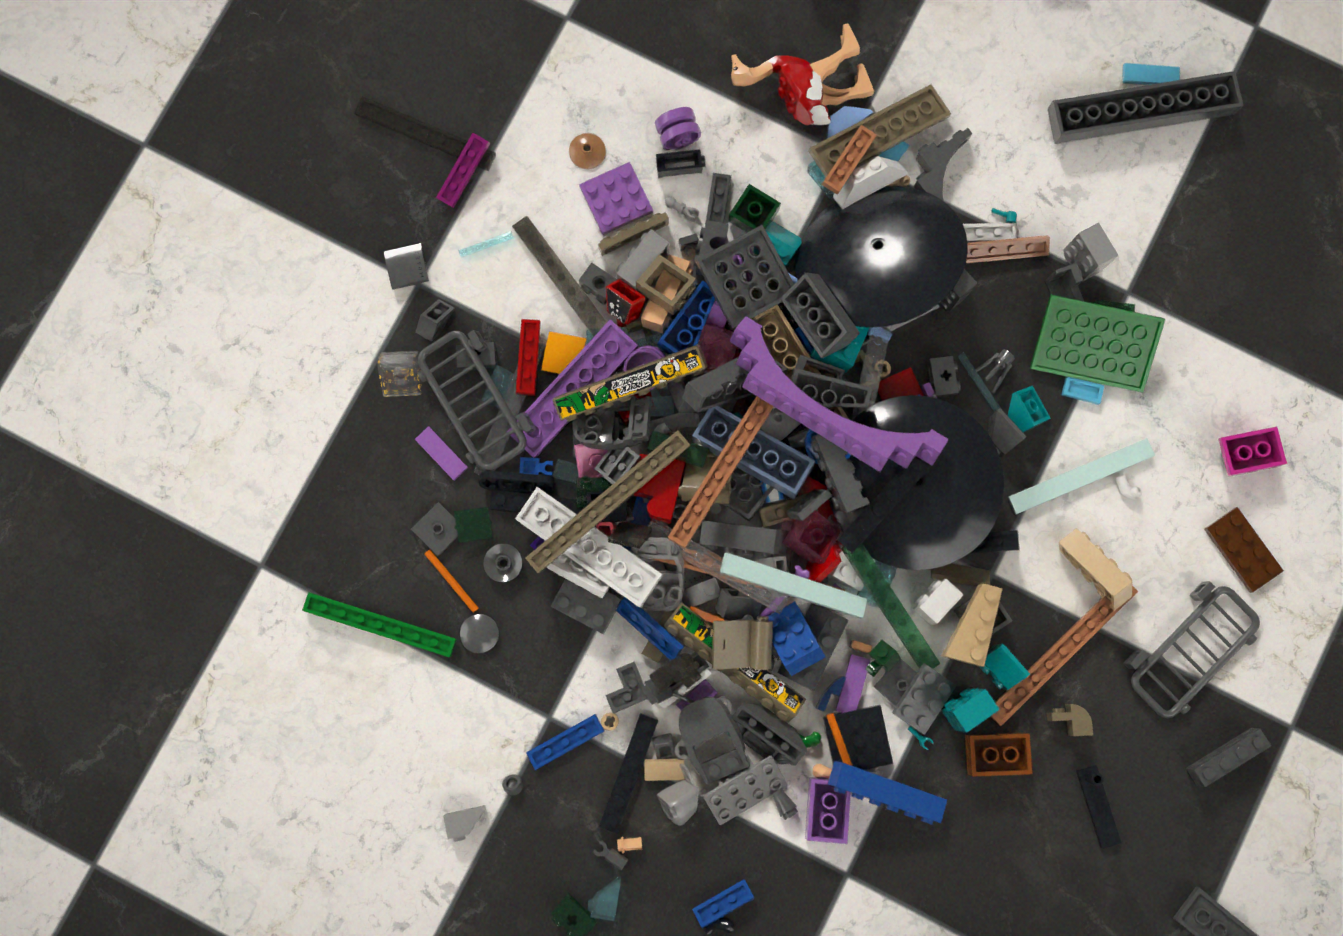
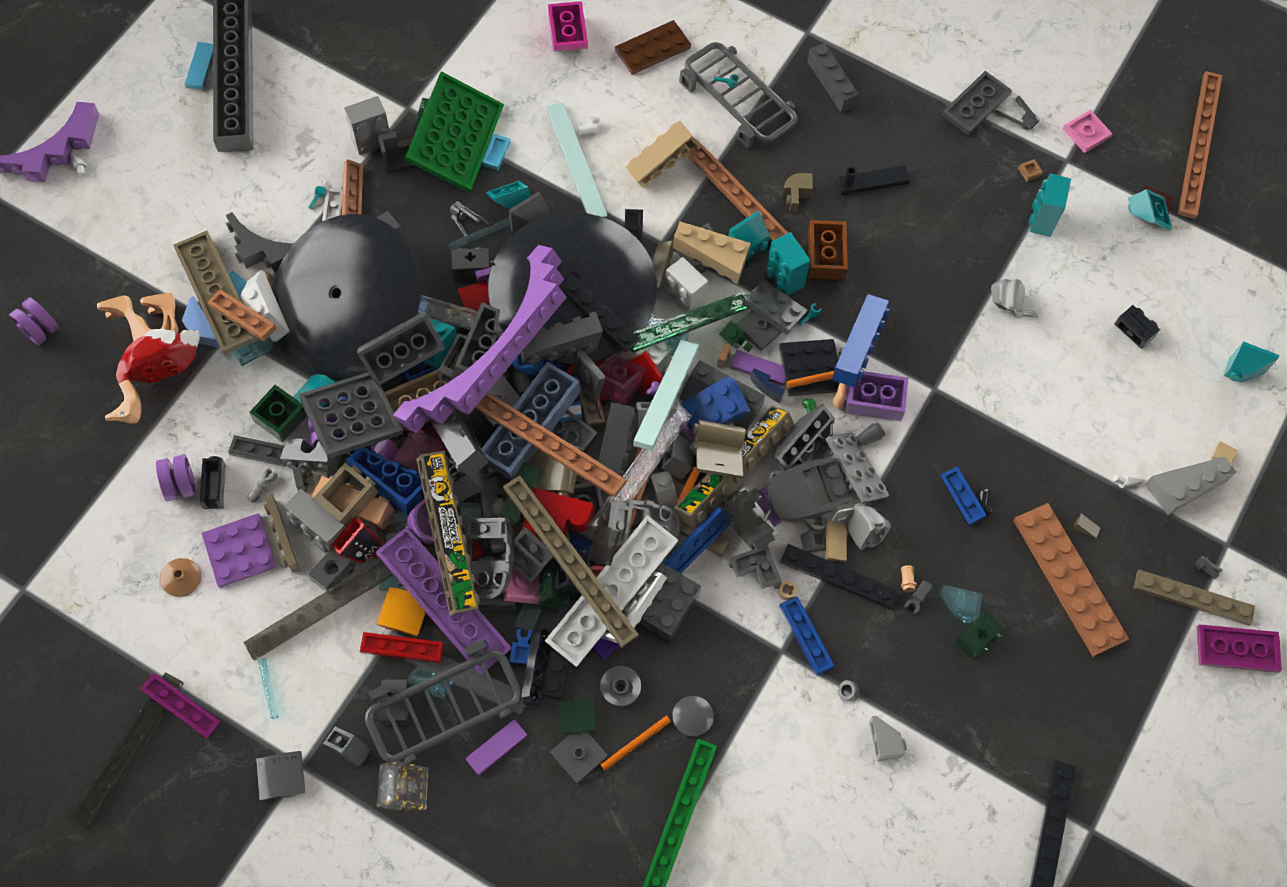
camera: 90 degrees left, 15 degrees down
(1201, 640) = (732, 81): none -> teal hand

